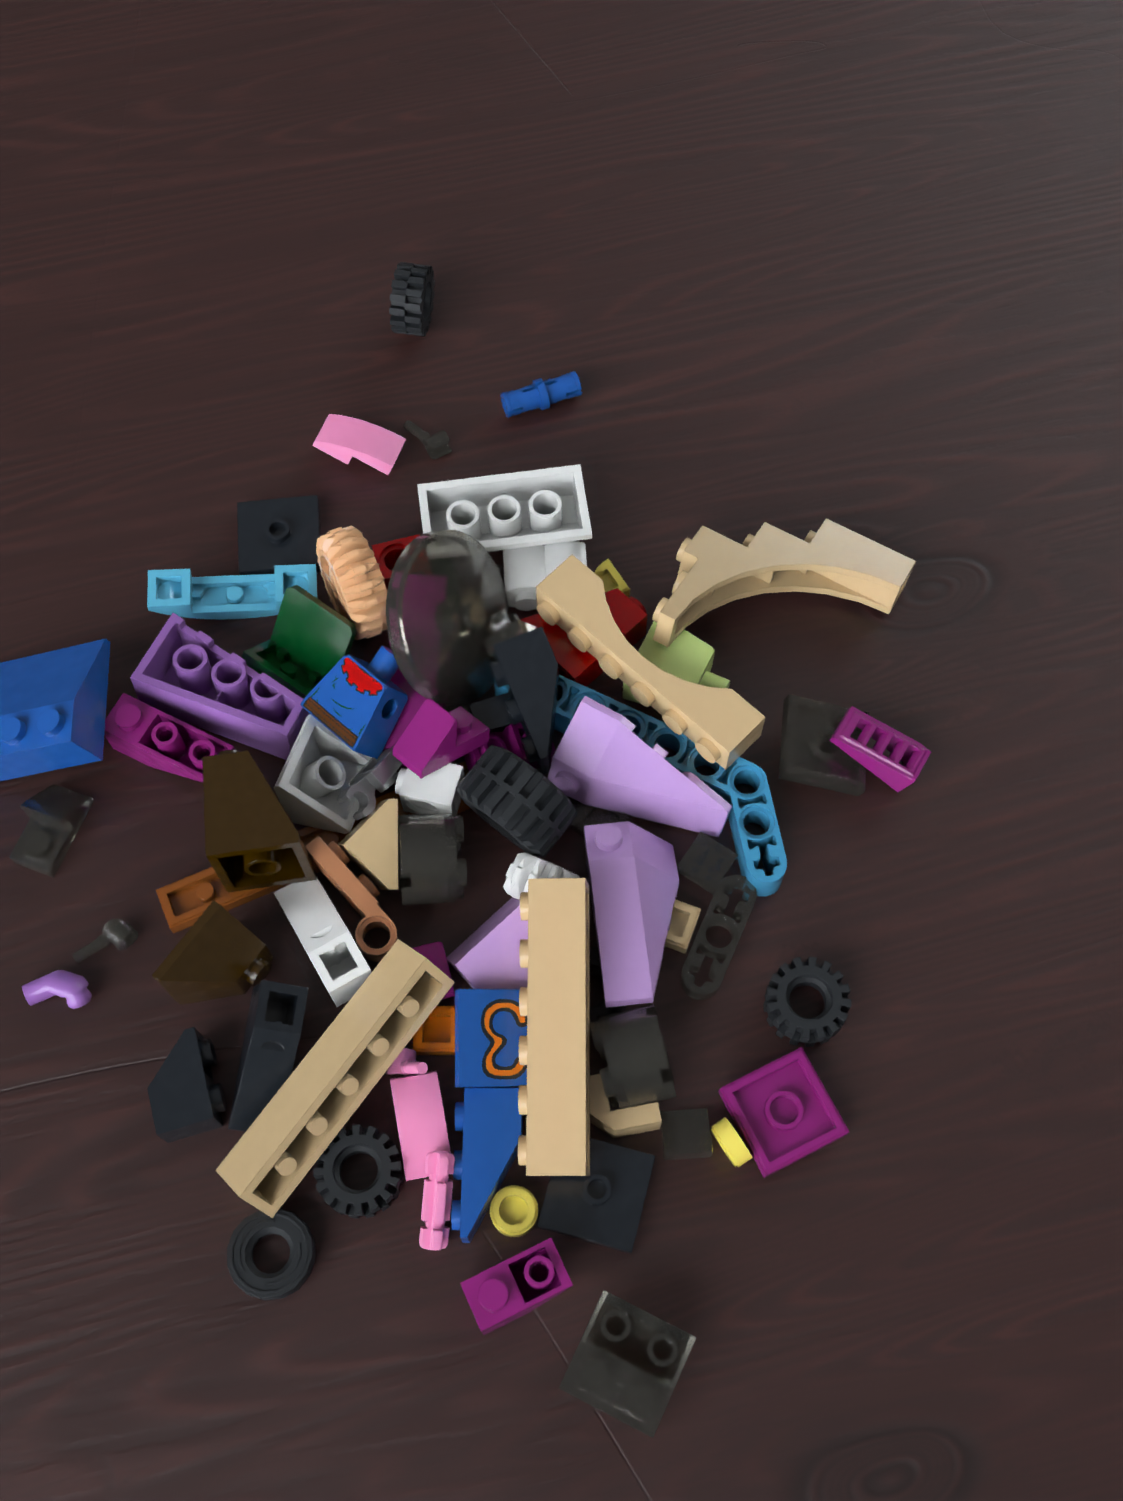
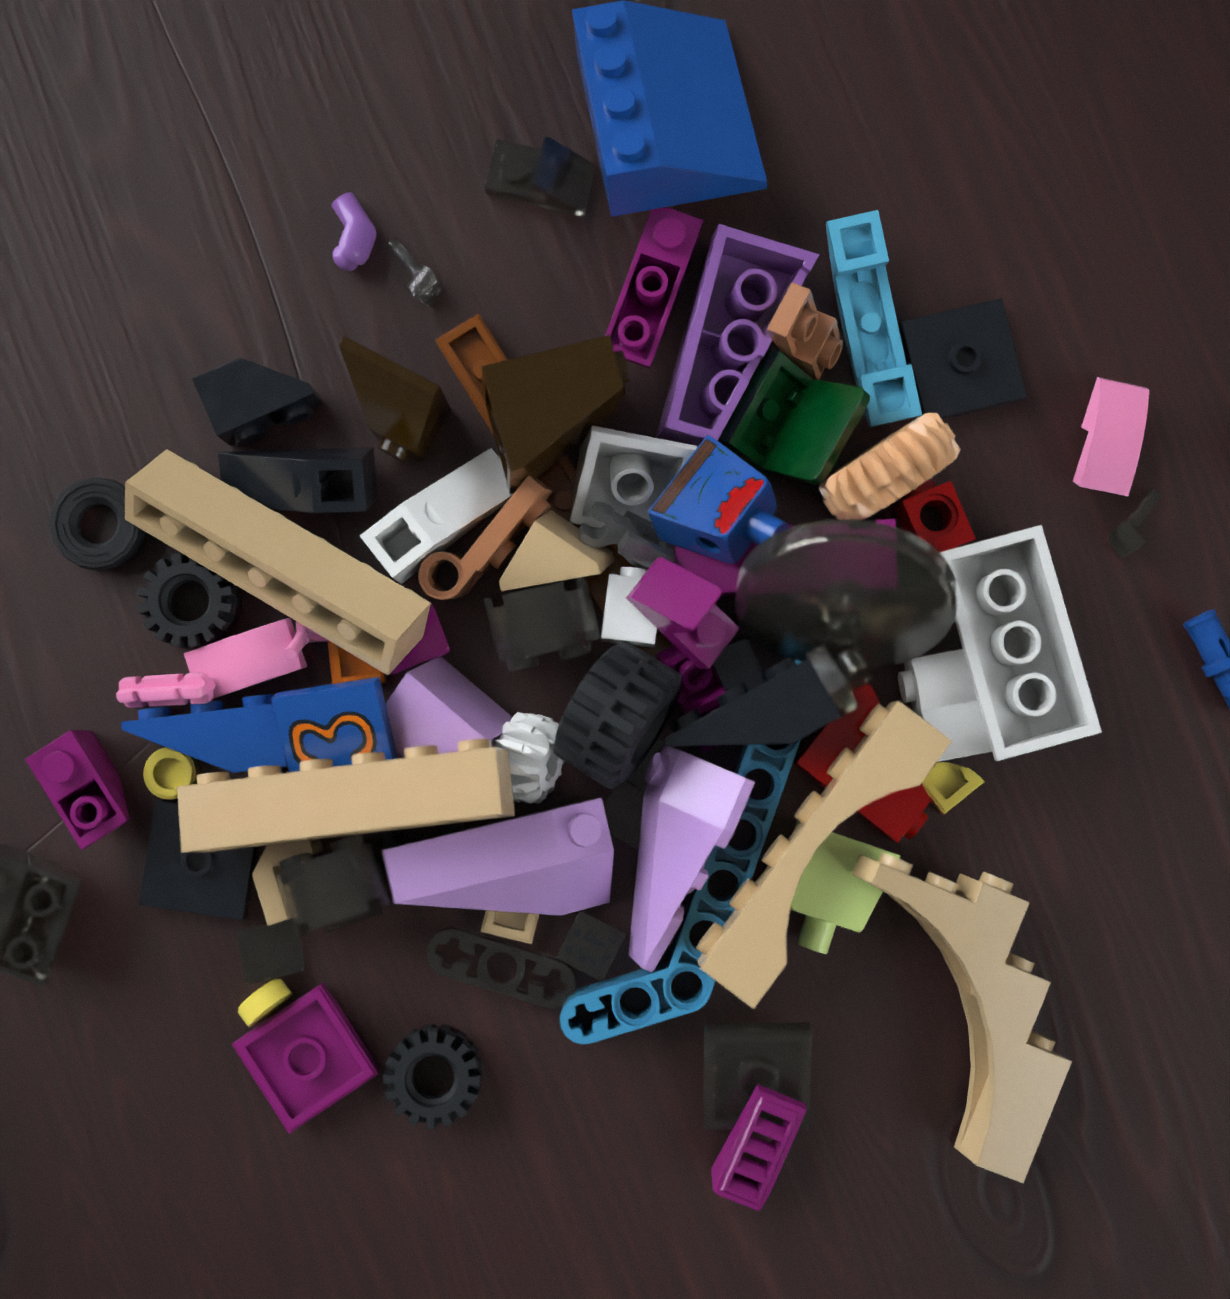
camera: 85 degrees right, 20 degrees up
(231, 631) = (804, 333): none -> nougat slope

